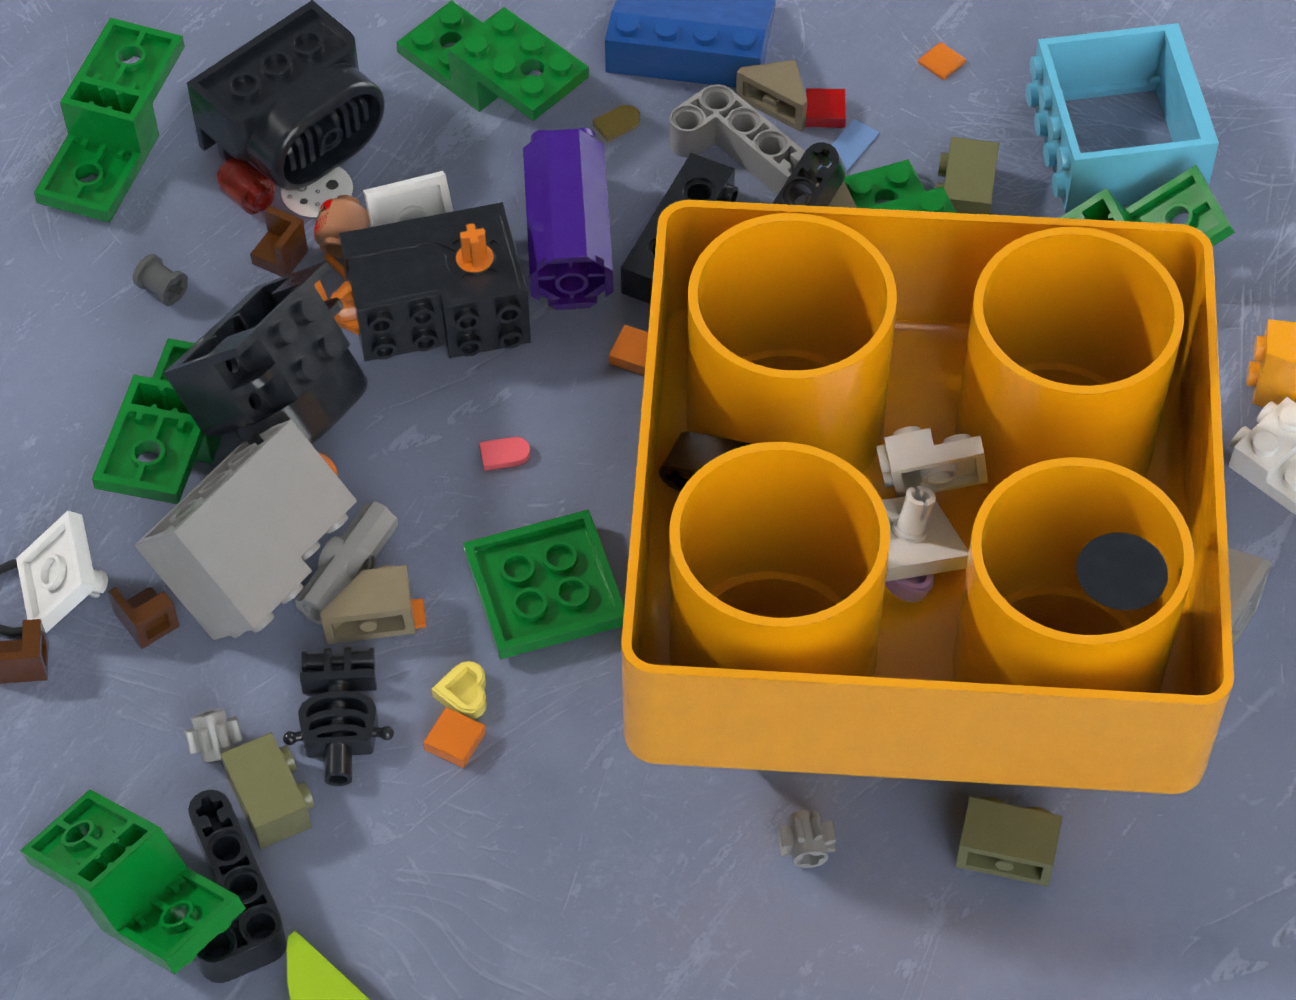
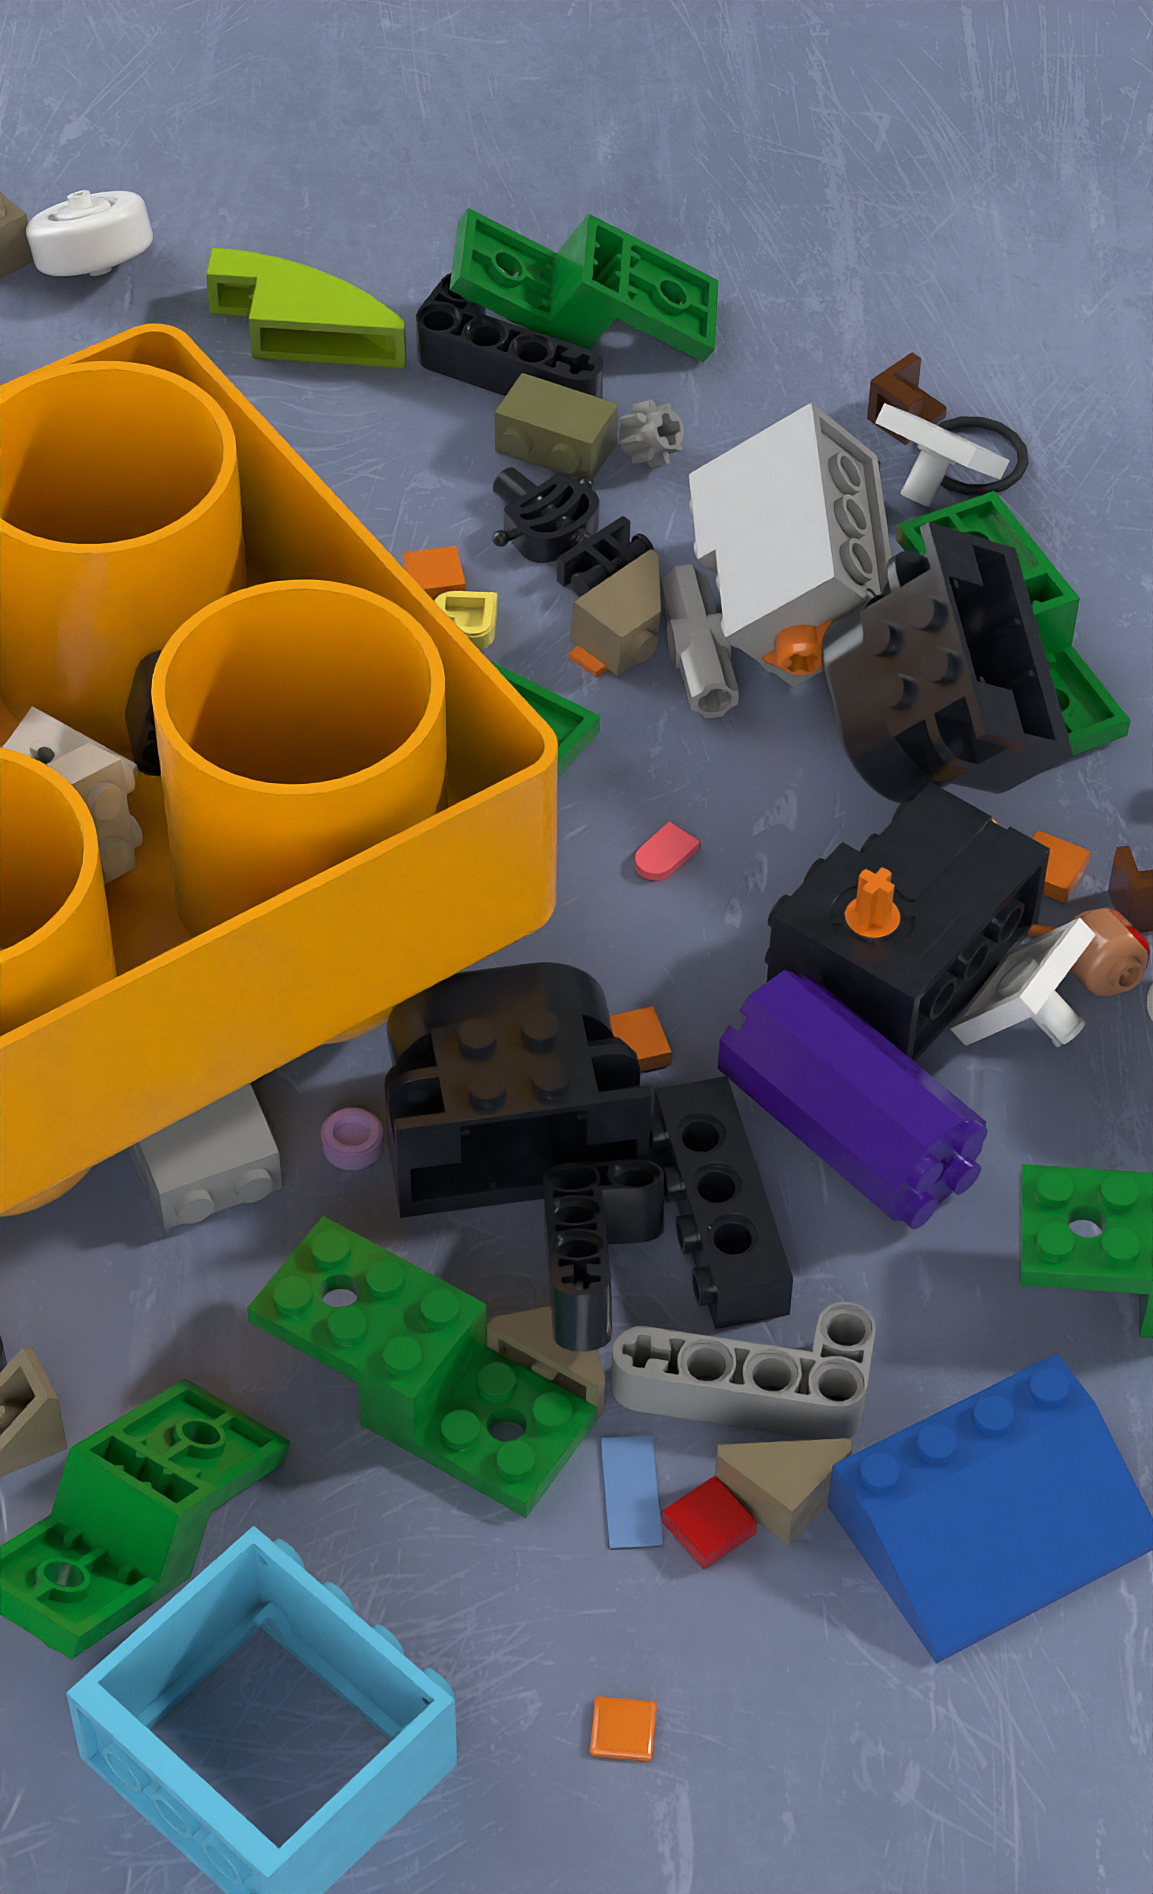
camera: 140 degrees right, 5 degrees down
(617, 122) = (954, 1325): clear yellow piece -> none
(969, 174) = (415, 1513): olive brick -> none

